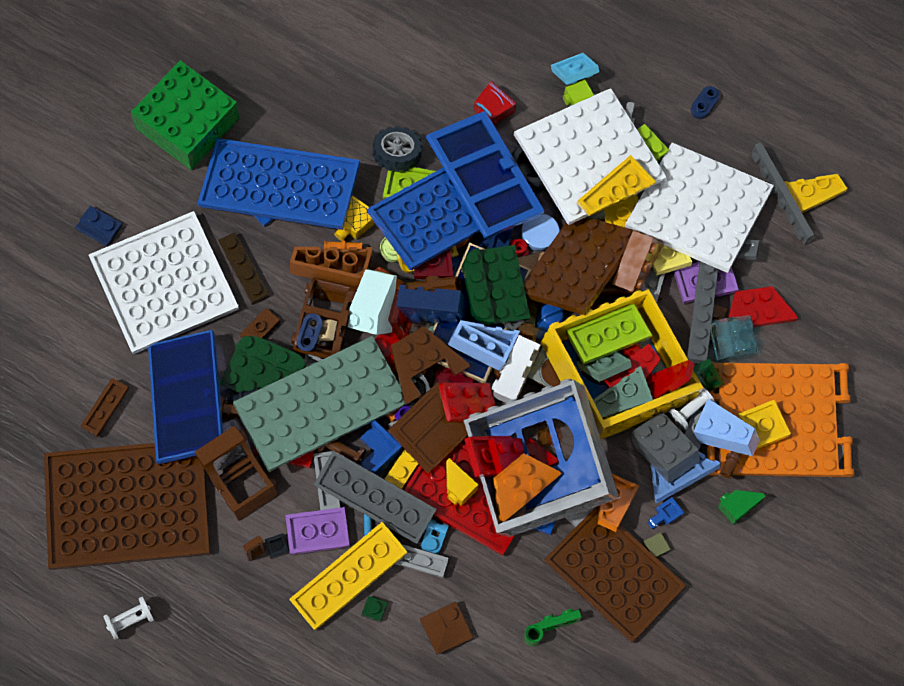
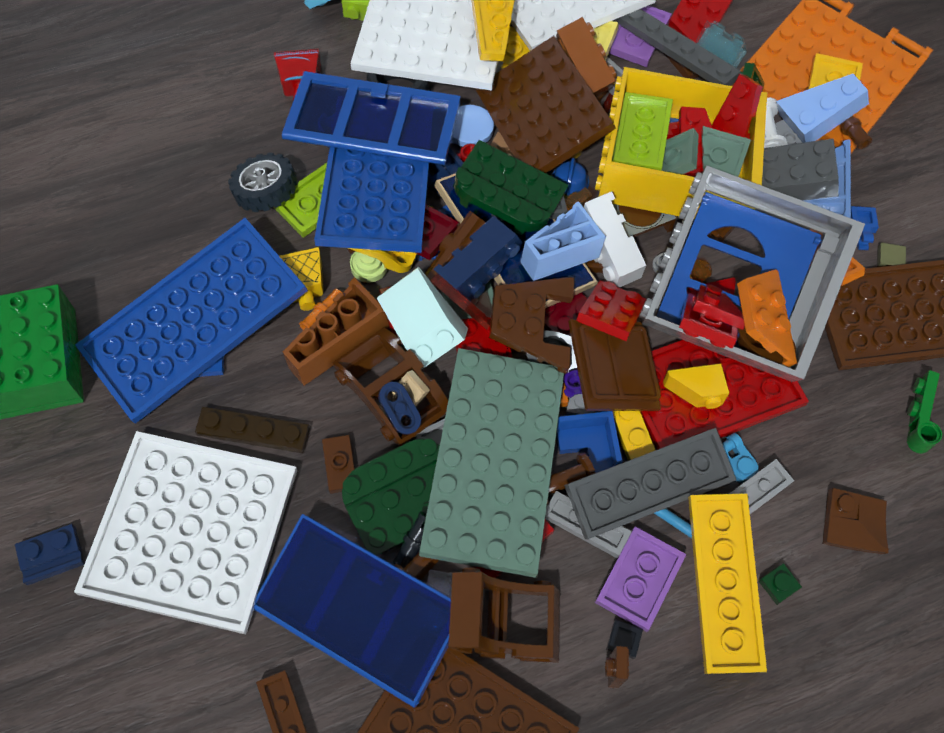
camera: 50 degrees left, 5 degrees down
(739, 503) = (899, 158): green slope -> none

